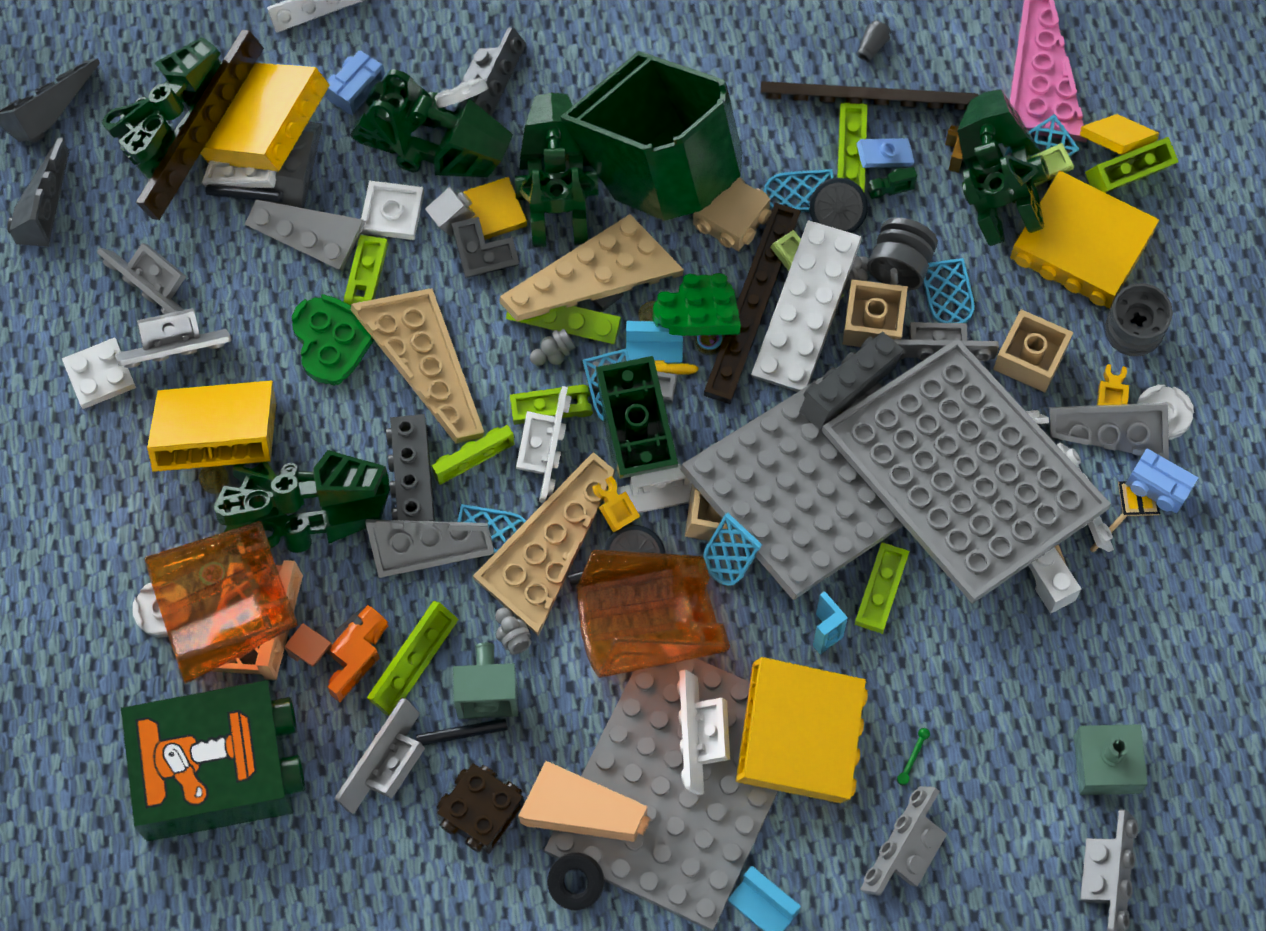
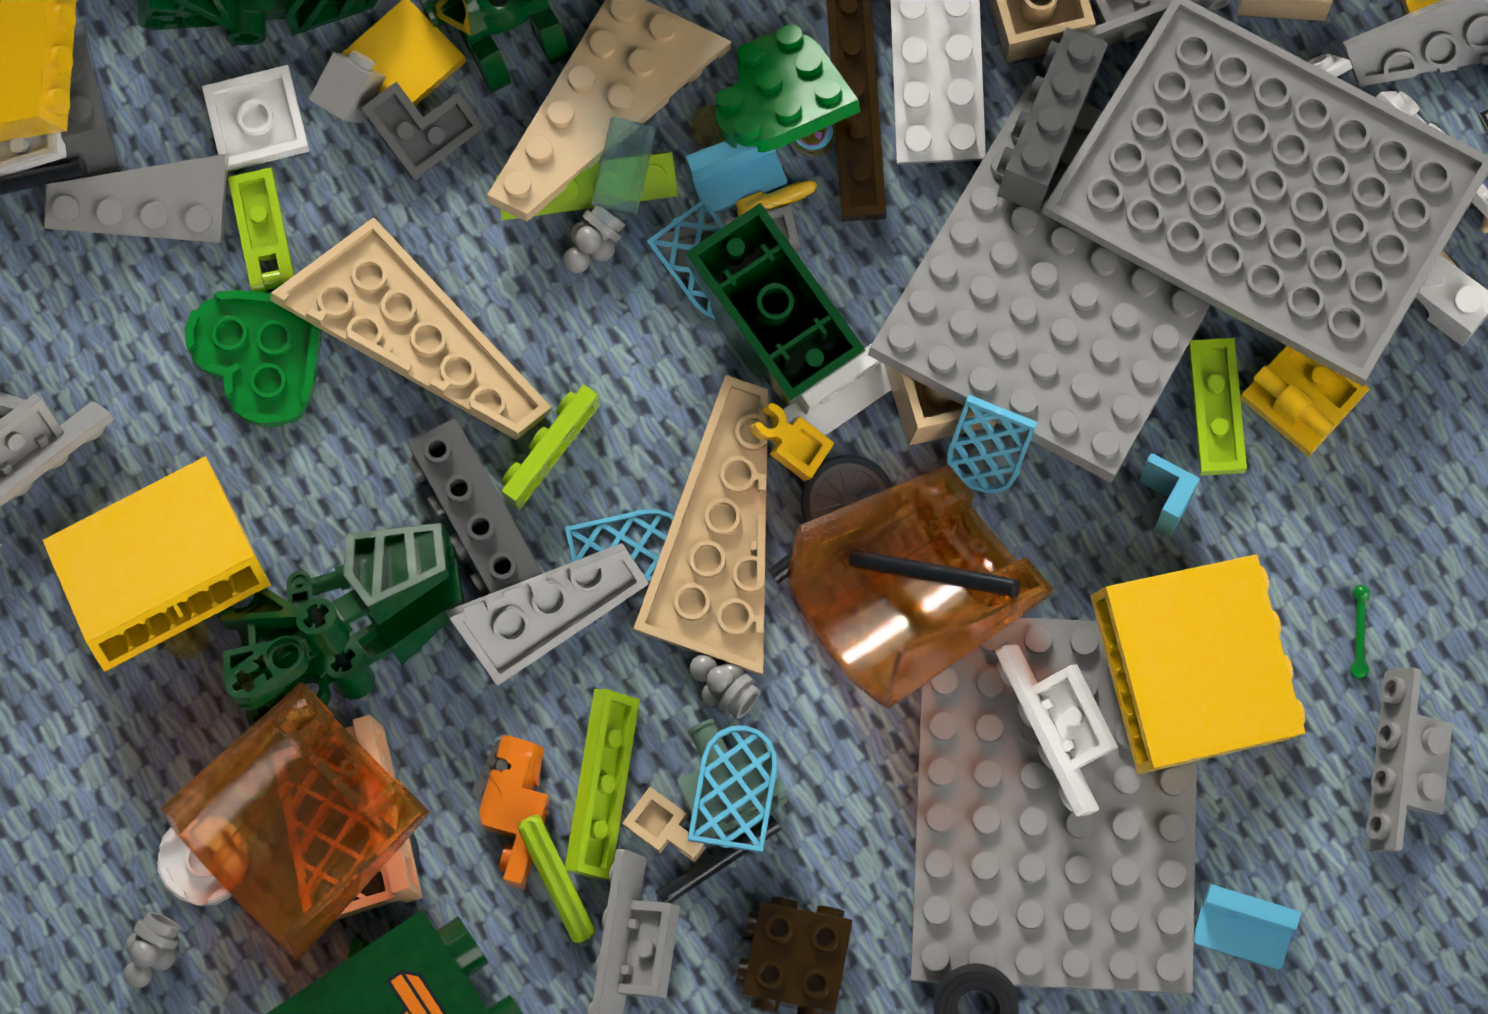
camera: 20 degrees left, 10 degrees up
(106, 645) = (150, 947): none -> light grey piece
(307, 645) = (447, 830): nougat panel -> none
(358, 700) = (556, 878): none -> lime axle
(436, 696) = (660, 823): none -> tan plate
(466, 714) = (699, 802): none -> medium azure window
(539, 443) = (643, 391): white bracket -> none
(546, 403) = (626, 325): lime plate -> none
(580, 806) = (938, 900): light nougat slope -> none
(587, 312) = (623, 166): none -> clear light blue tile
(663, 611) = (934, 573): none -> black bar
(936, 603) = (1302, 398): none -> yellow plate

